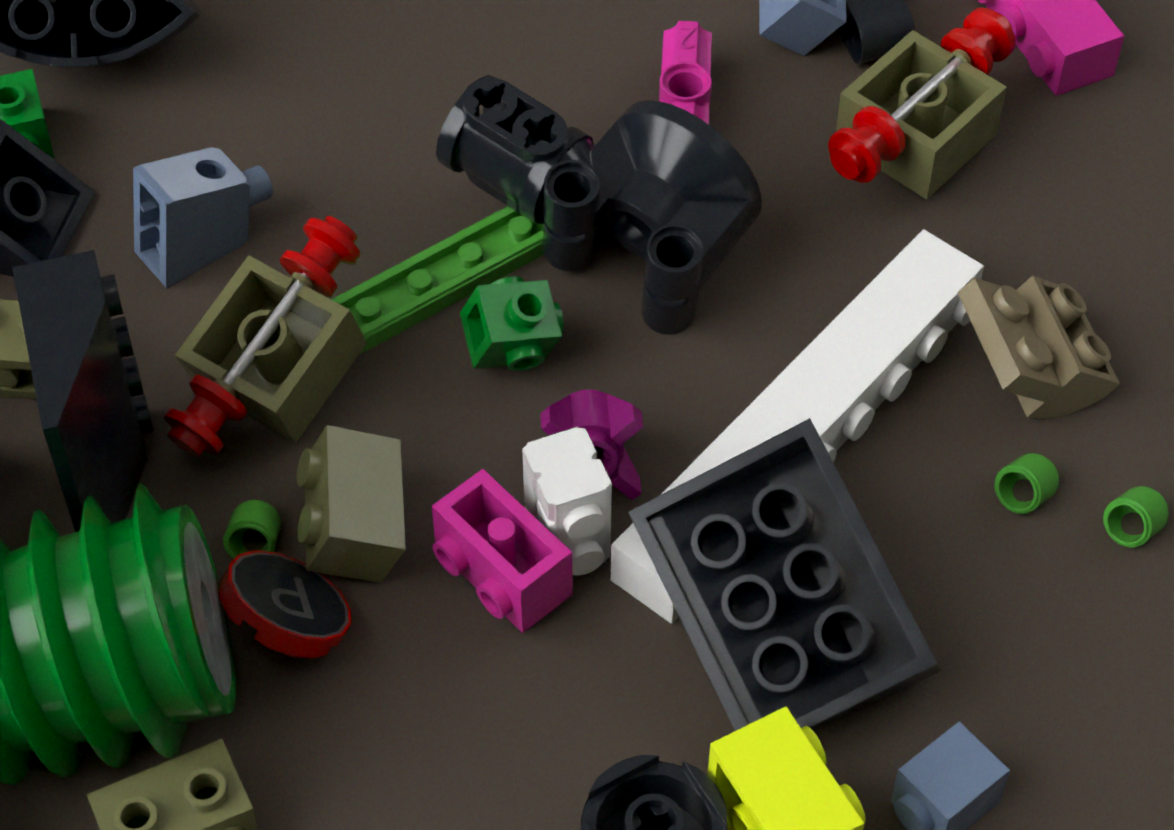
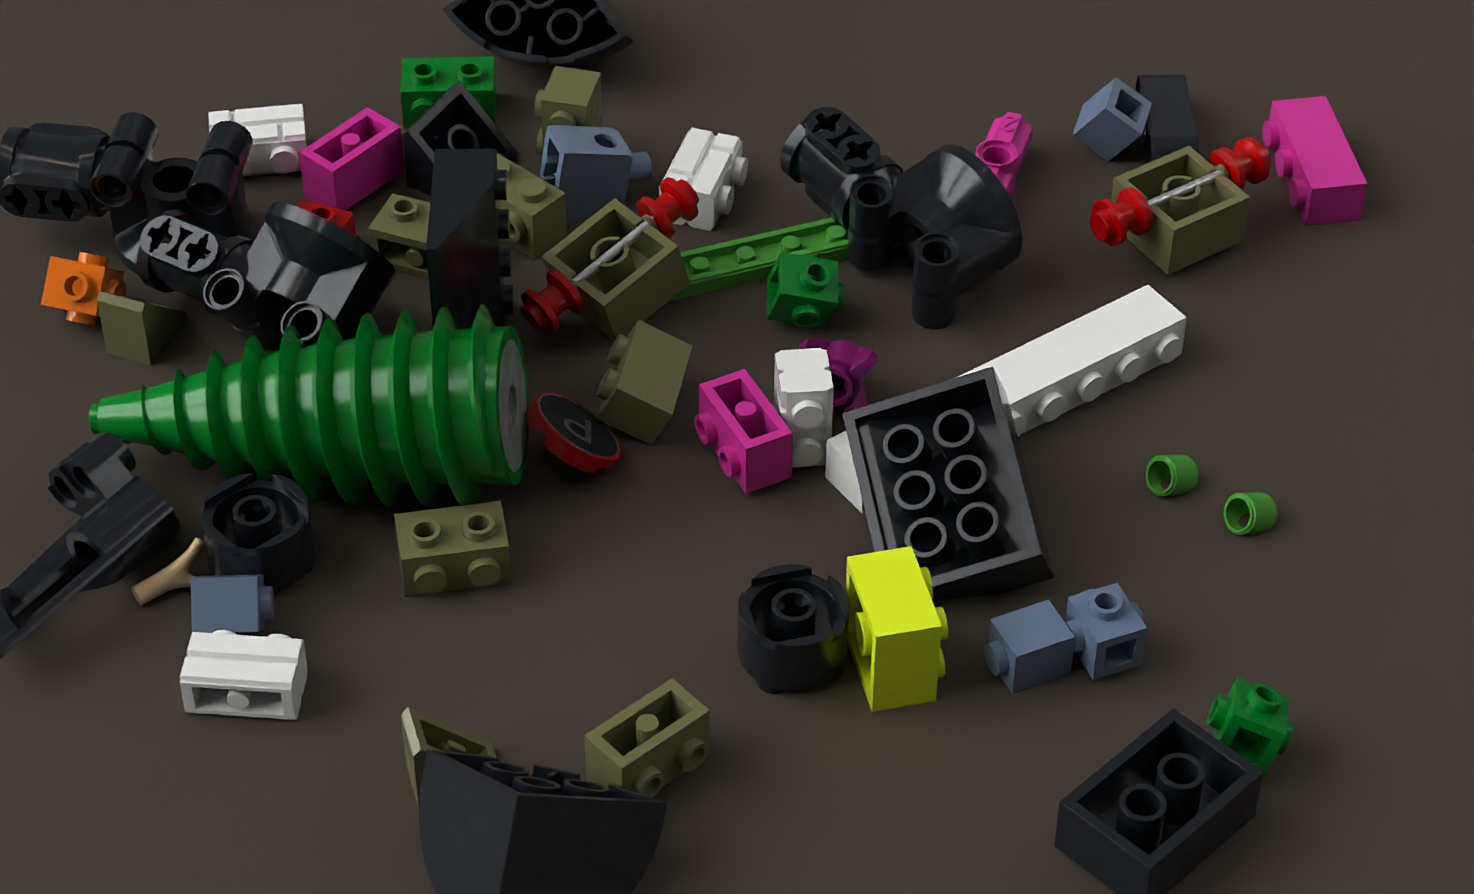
camera: 15 degrees right, 10 degrees down
(145, 271) = (535, 211): none -> olive brick
(148, 125) = (569, 100): none -> olive brick
(254, 515) = (569, 381): bright green piece -> none
(339, 178) = (712, 169): none -> white brick
(1037, 741) = (1106, 630): none -> sand blue brick
(1040, 345) = (1213, 381): dark tan brick -> none

